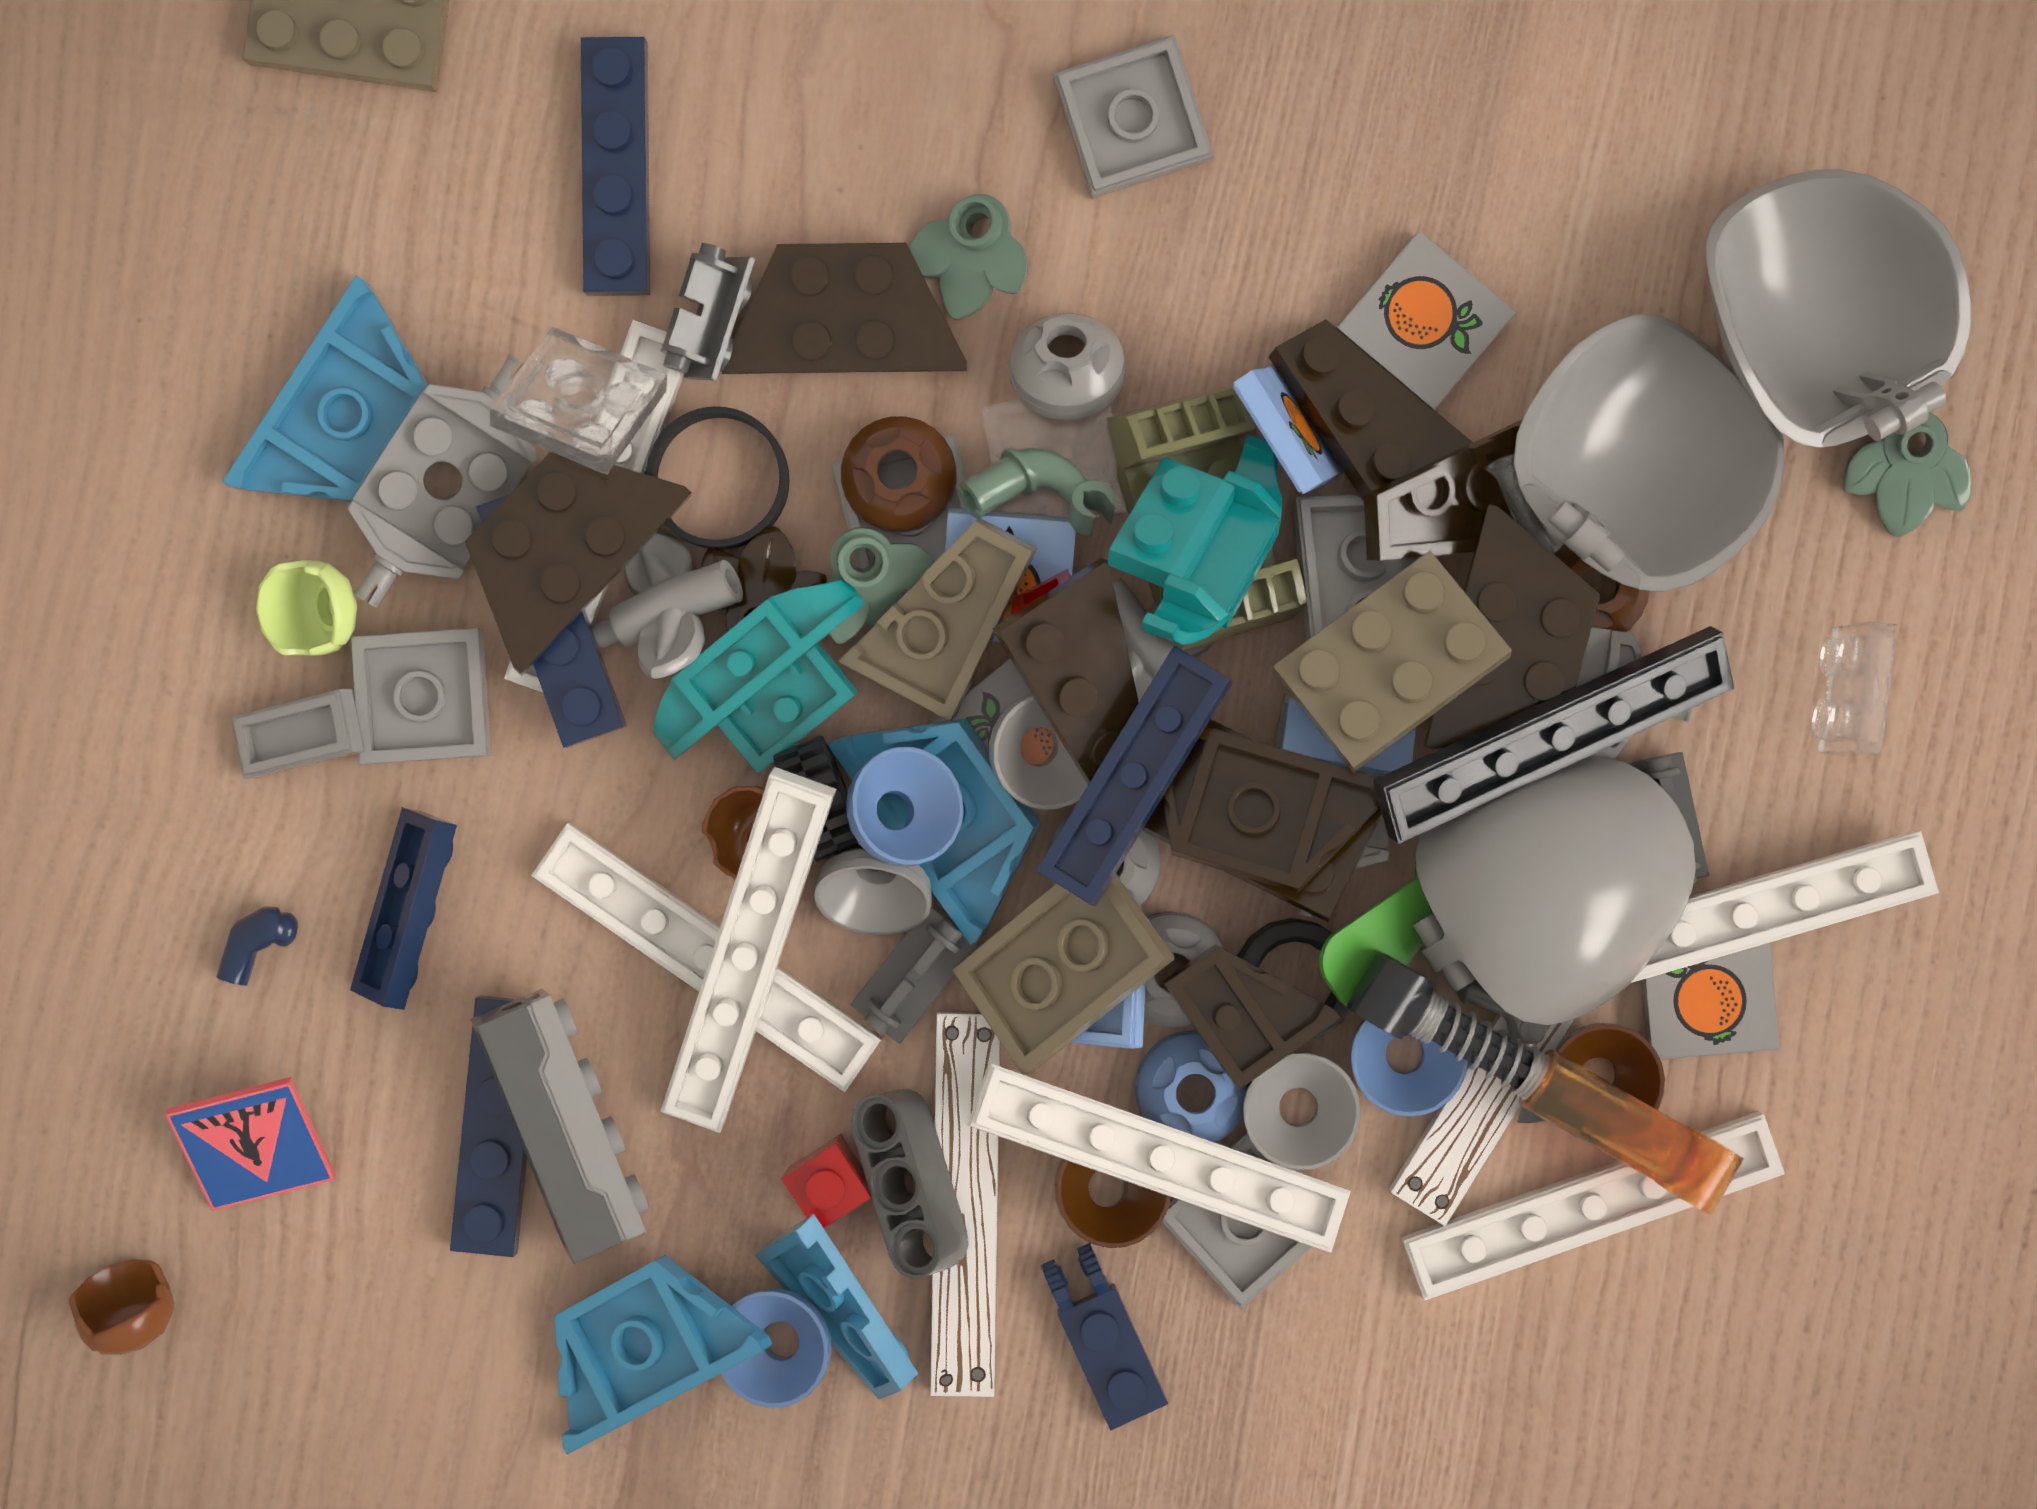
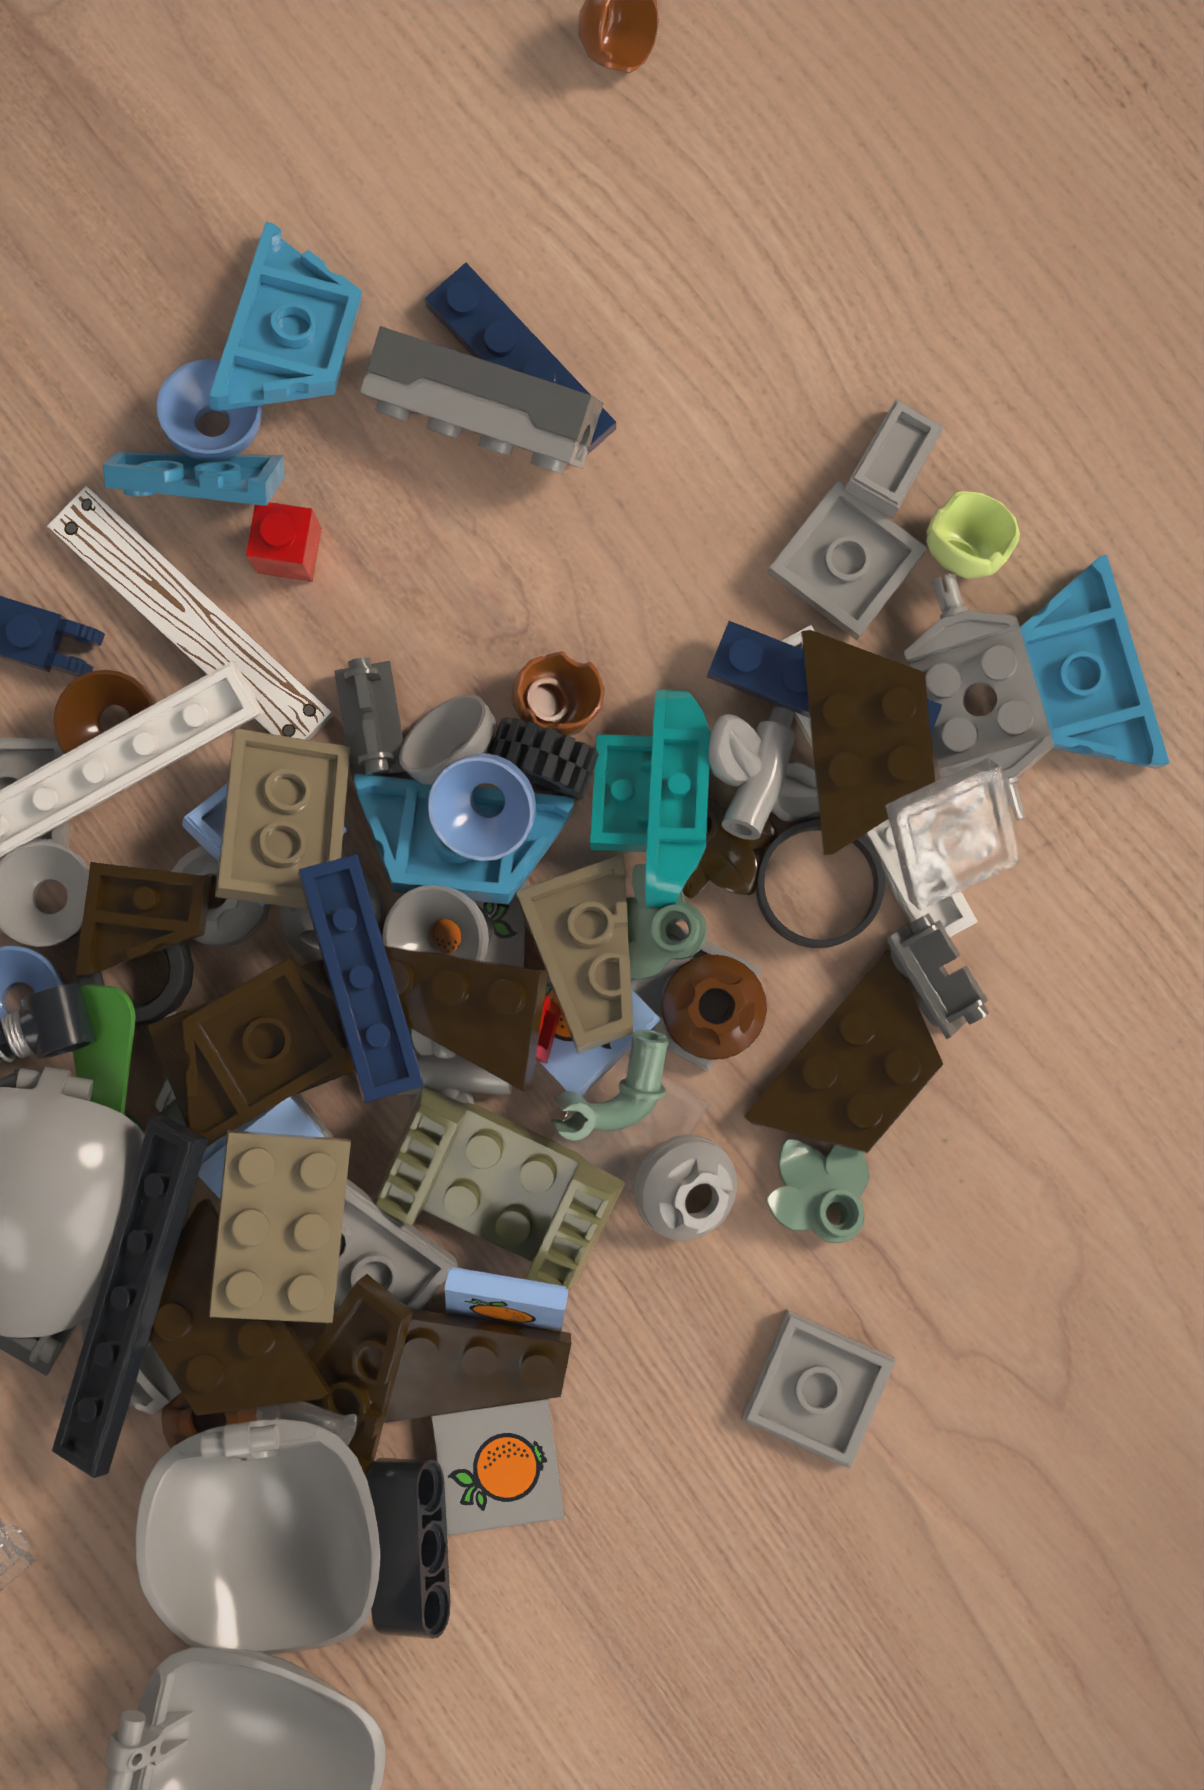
camera: 130 degrees right, 5 degrees down
(250, 1143) = (651, 195): piece -> none
(252, 935) = (787, 313): dark blue arm -> none
(403, 908) = (716, 426): dark blue plate -> none
(615, 166) = (1093, 1003): dark blue plate -> none
(683, 943) = (507, 596): white tile -> none
(748, 948) = (485, 623): white tile -> none
(884, 1163) = (221, 569): dark grey beam -> none
(1164, 1069) = (156, 831): medium blue piece -> none
(1201, 540) = (479, 1168): teal plate -> none
(1566, 310) = (413, 1544): none -> black beam
(1907, 482) = (82, 1706): sand green plate -> none

